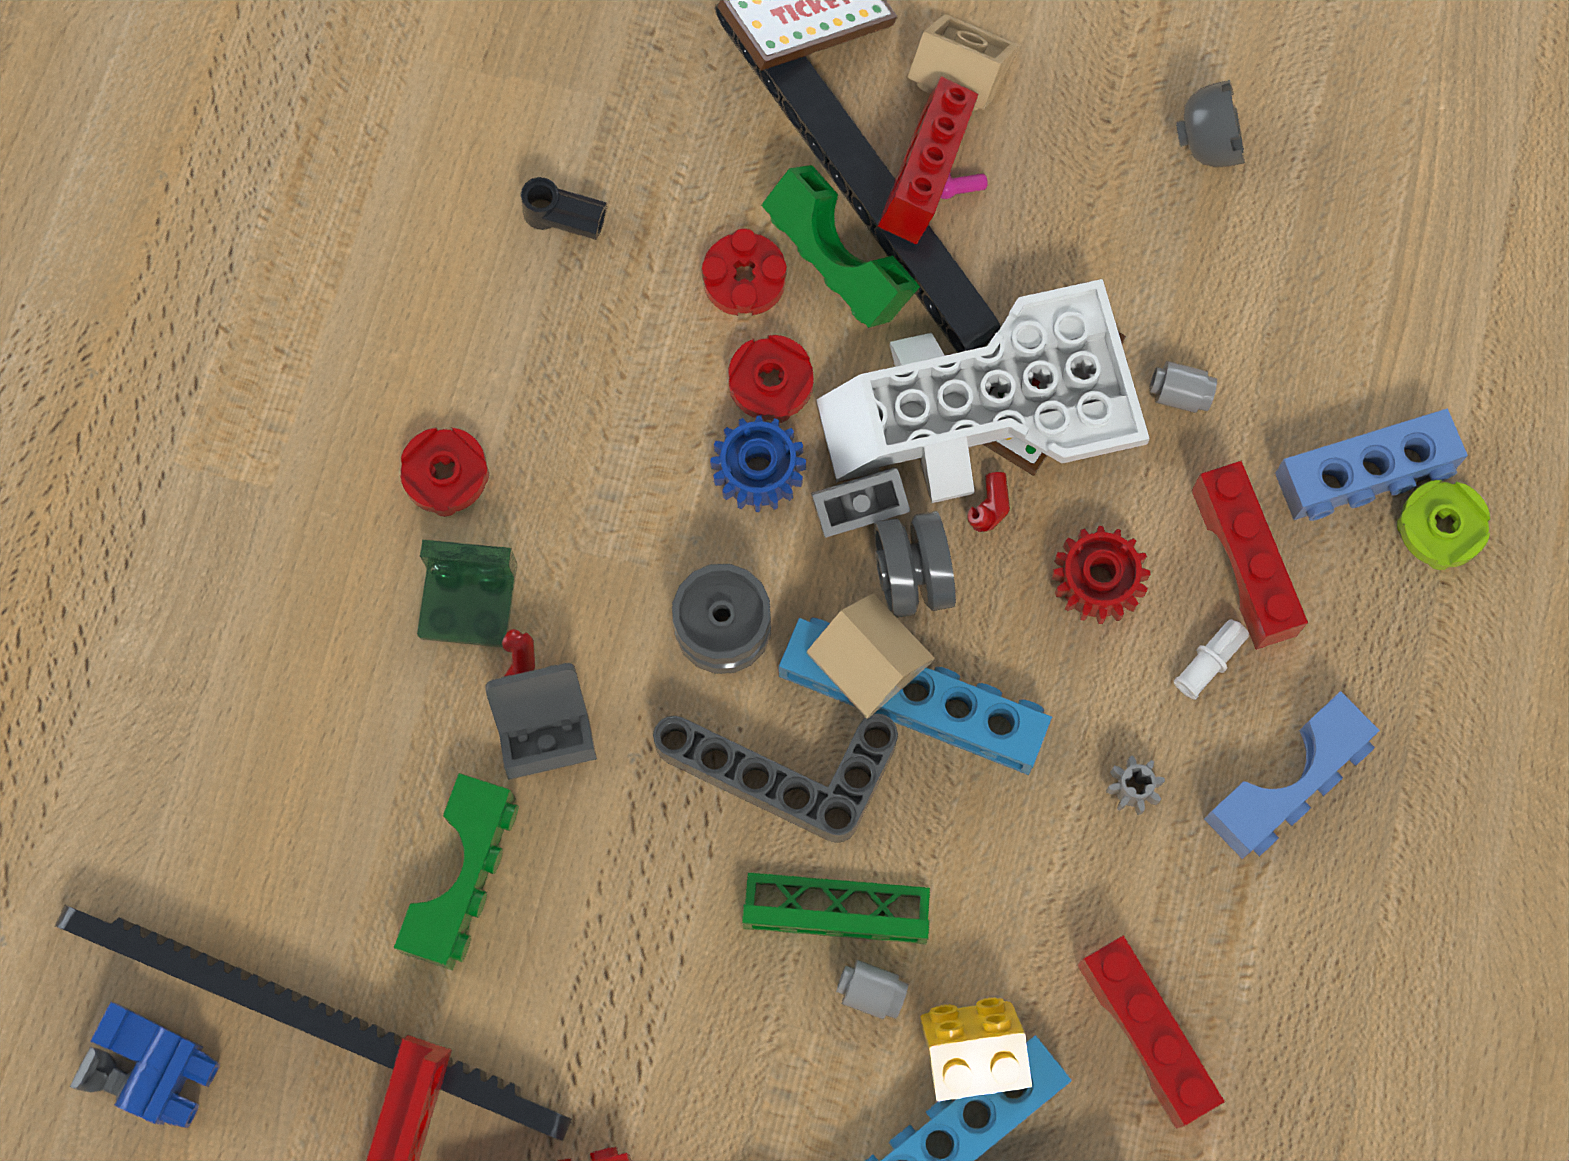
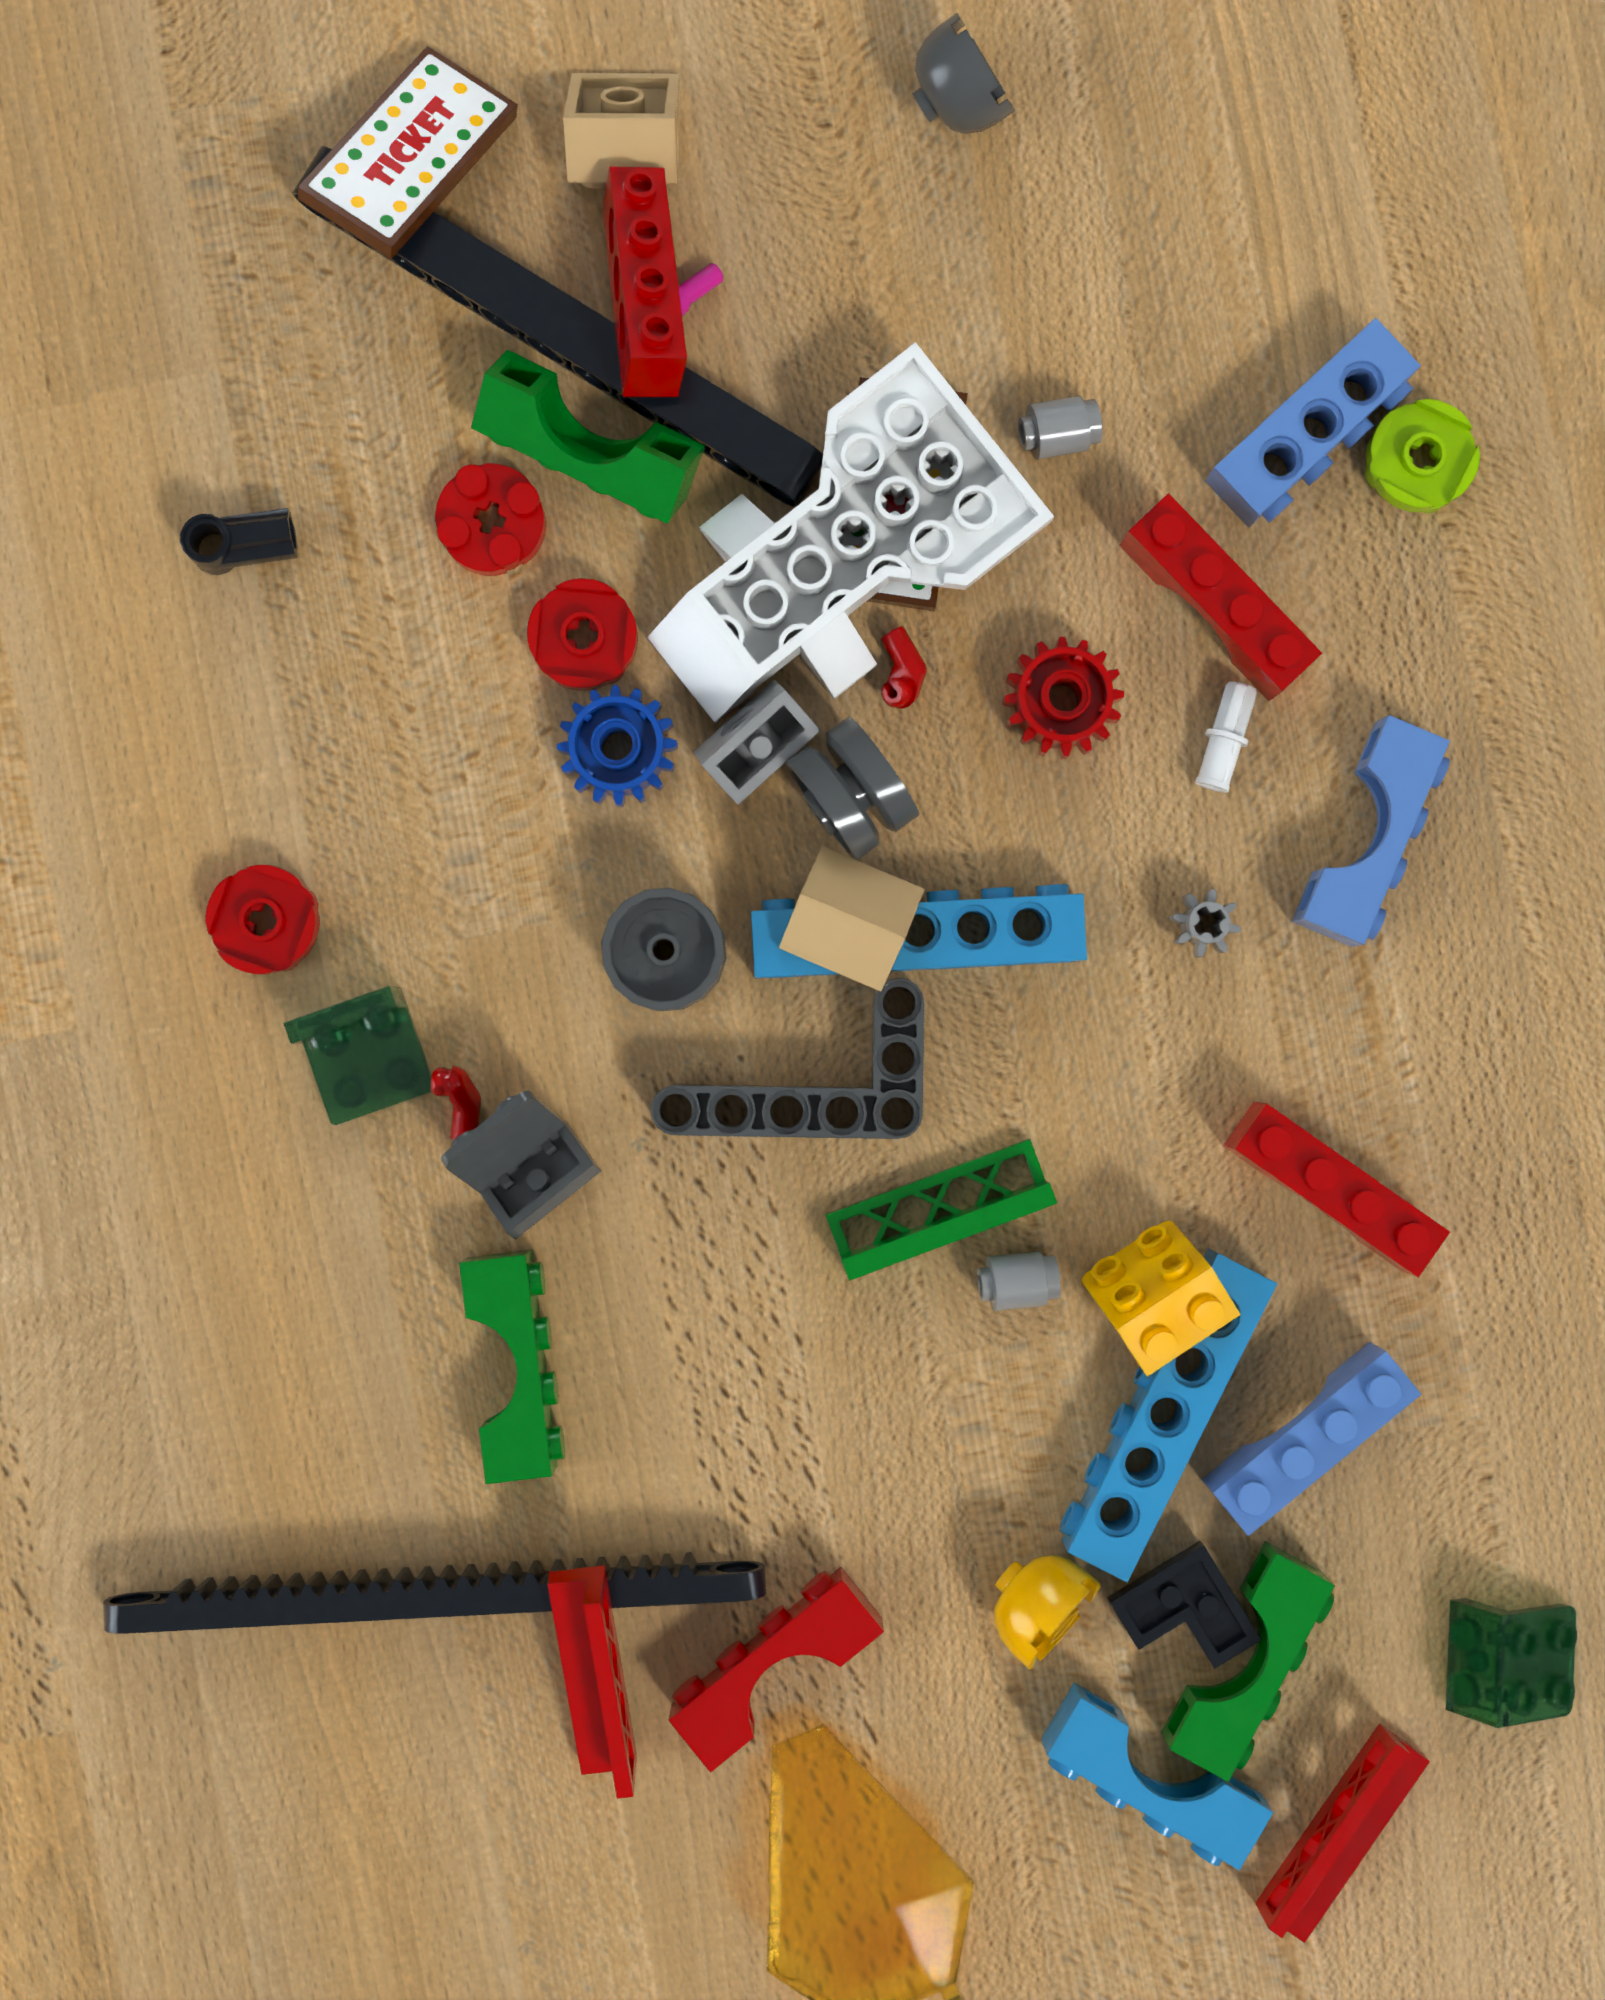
camera: 25 degrees left, 15 degrees up
(160, 1070) = (299, 1713): blue hips -> none

